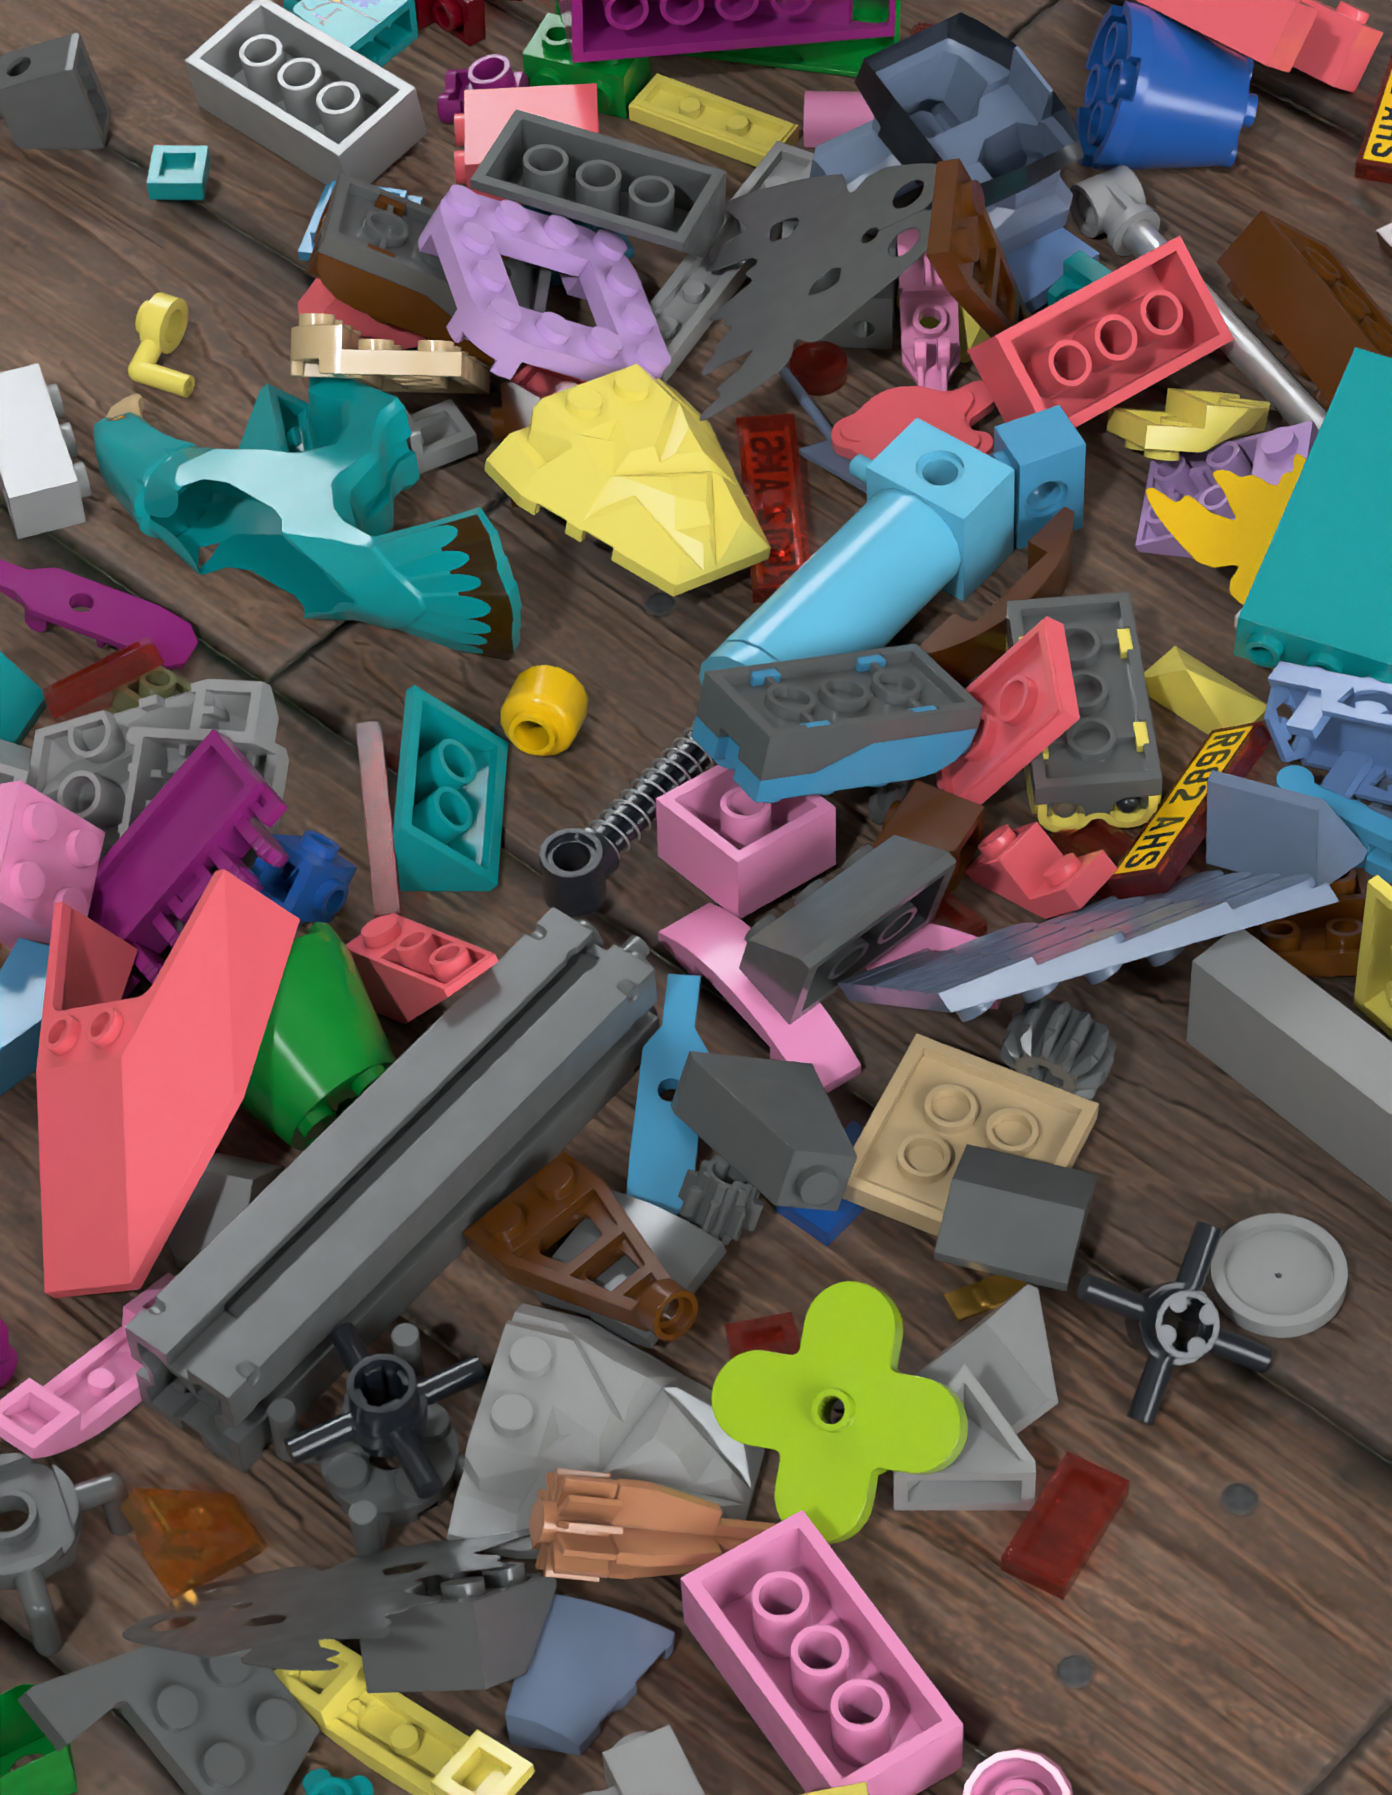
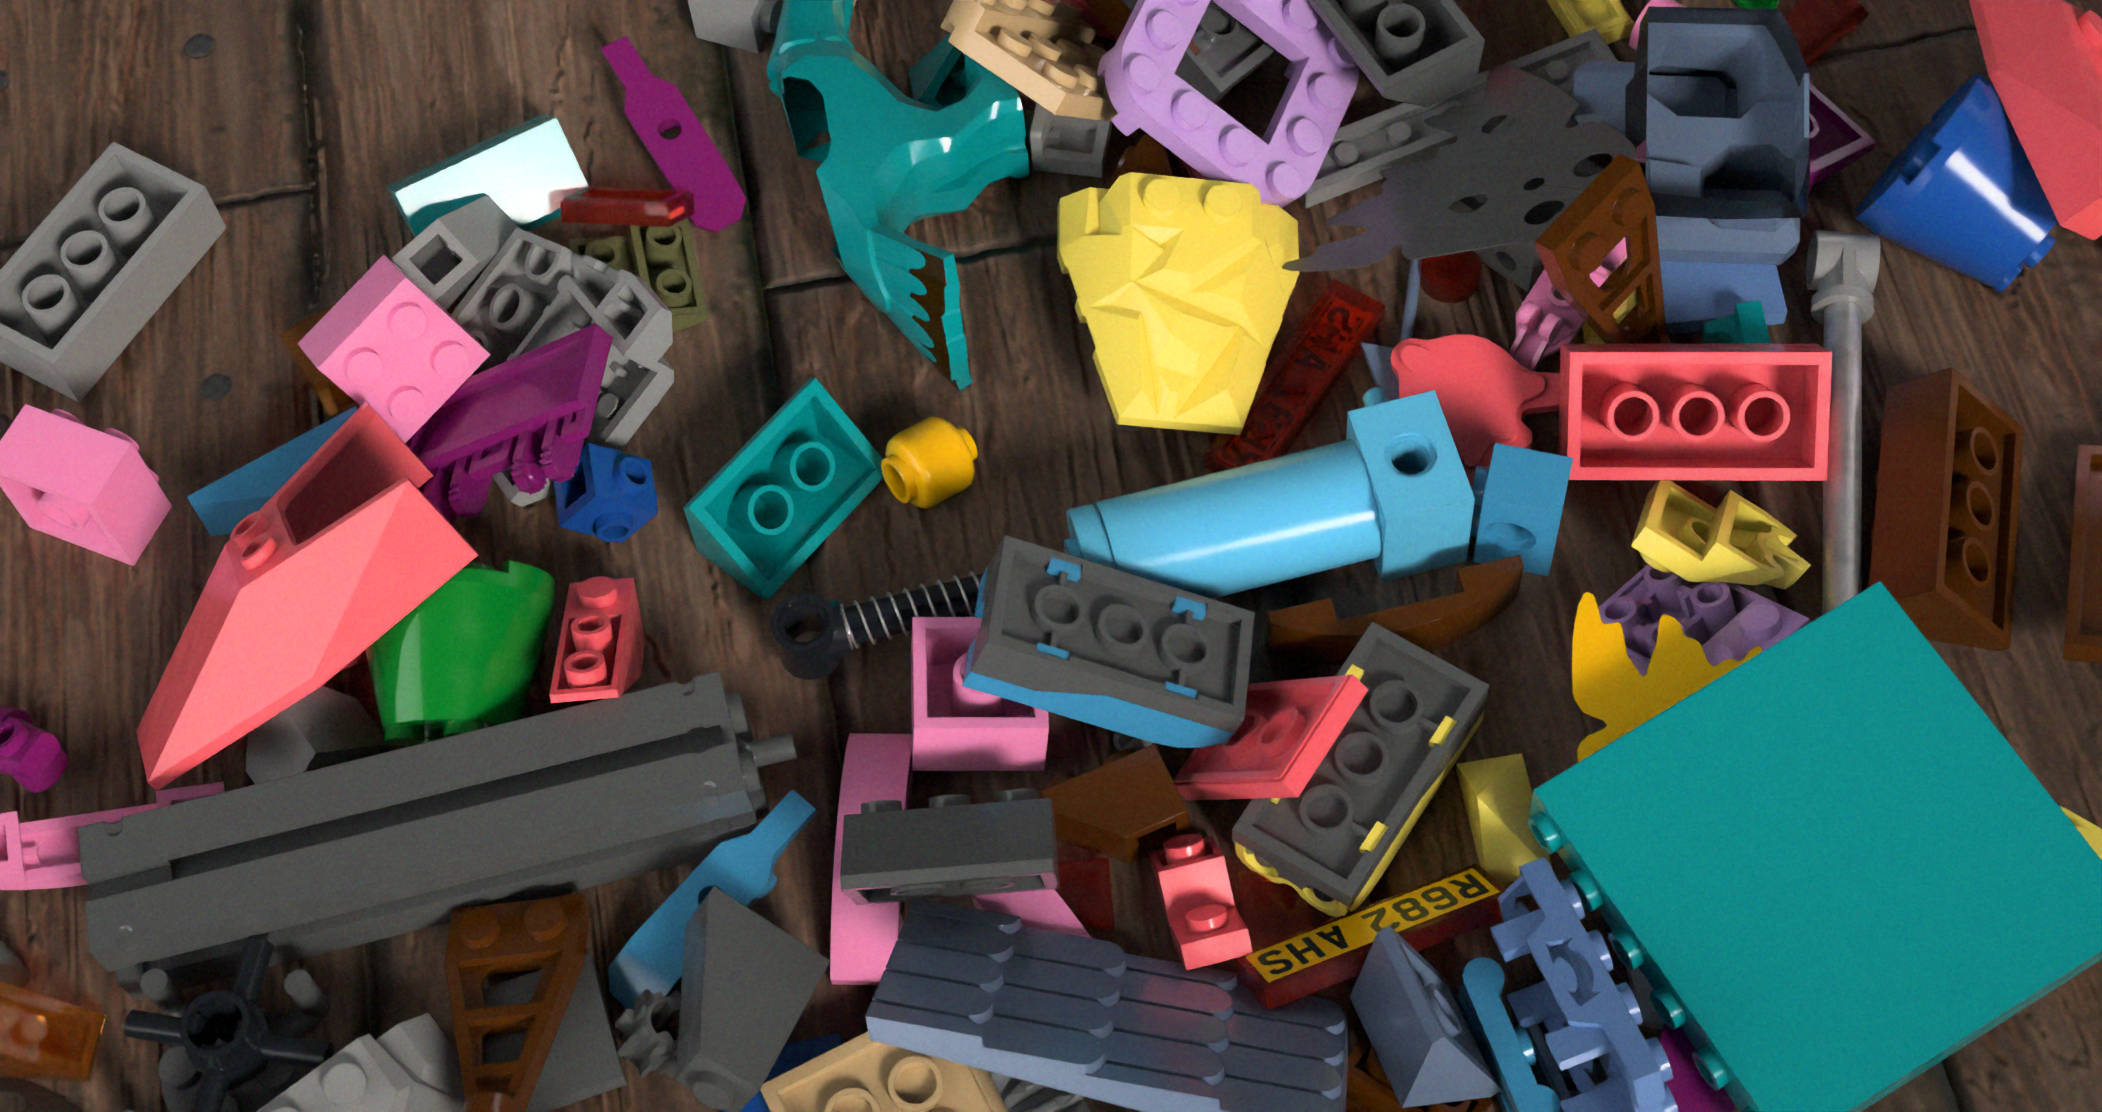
camera: 40 degrees right, 10 degrees up
(378, 819) = (670, 539): clear red tile -> none

